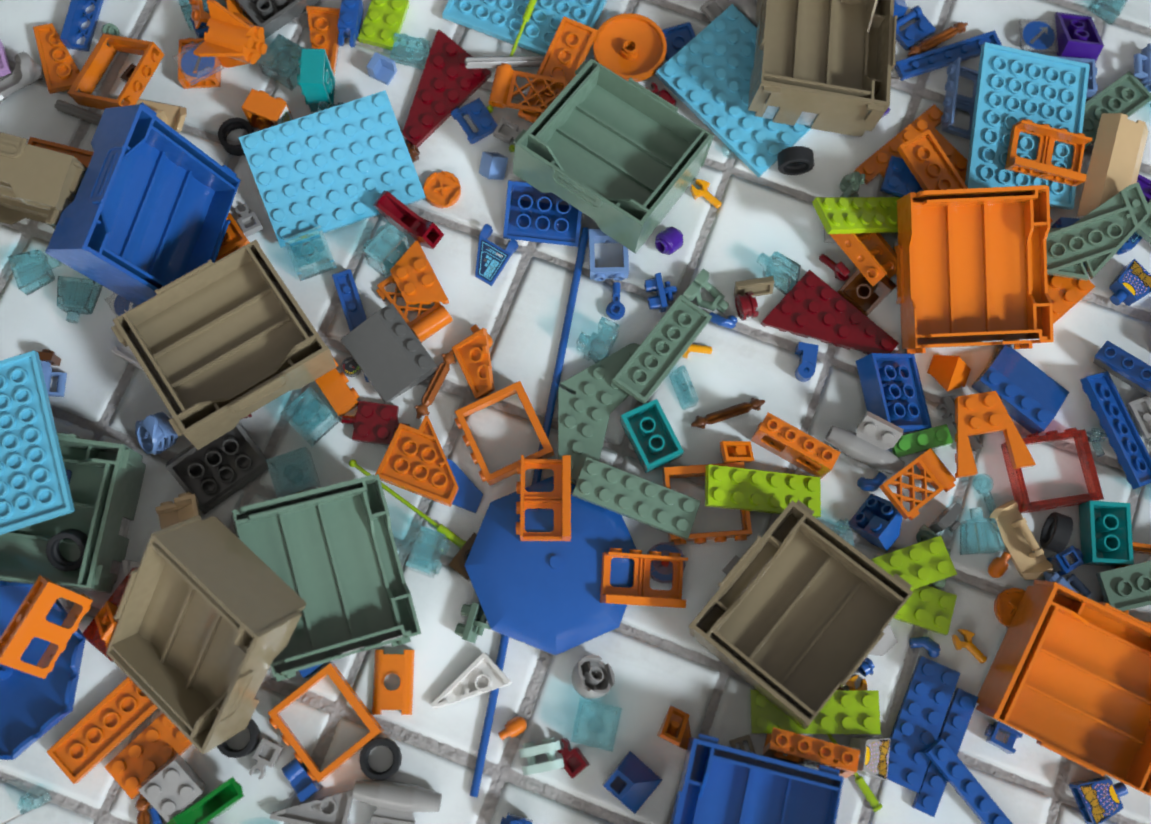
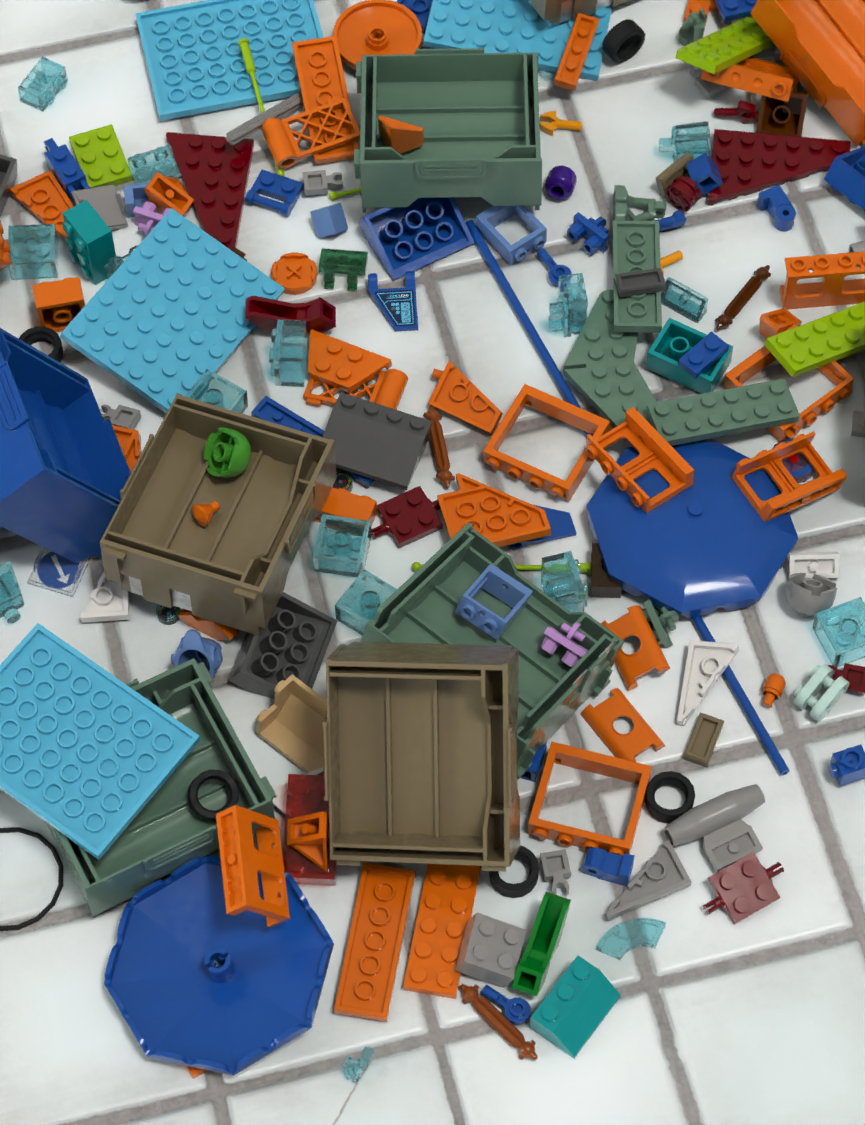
camera: 30 degrees left, 15 degrees down
(212, 339) = (203, 512): none -> orange rock
(260, 308) = (227, 453): none -> bright green cylinder
(350, 58) = (106, 203): none -> light grey piece
(367, 539) = (493, 582): none -> medium blue window
(377, 83) = (147, 218): none -> lavender hips
(377, 608) = (555, 638): none -> lavender hips
(403, 76) = (168, 193): none -> orange slope
(438, 730) = (703, 739): none -> dark tan tile
(447, 644) = (649, 654): none -> orange piece
(479, 203) = (342, 262): none -> clear green plate
(568, 138) = (399, 134): none -> orange slope
(614, 655) = (811, 563): none -> white plate
(656, 445) = (703, 355): none -> blue plate
(657, 357) = (640, 282): none -> dark grey tile
(755, 148) = (576, 51): none -> orange plate
(772, 301) = (704, 173): none -> blue brick

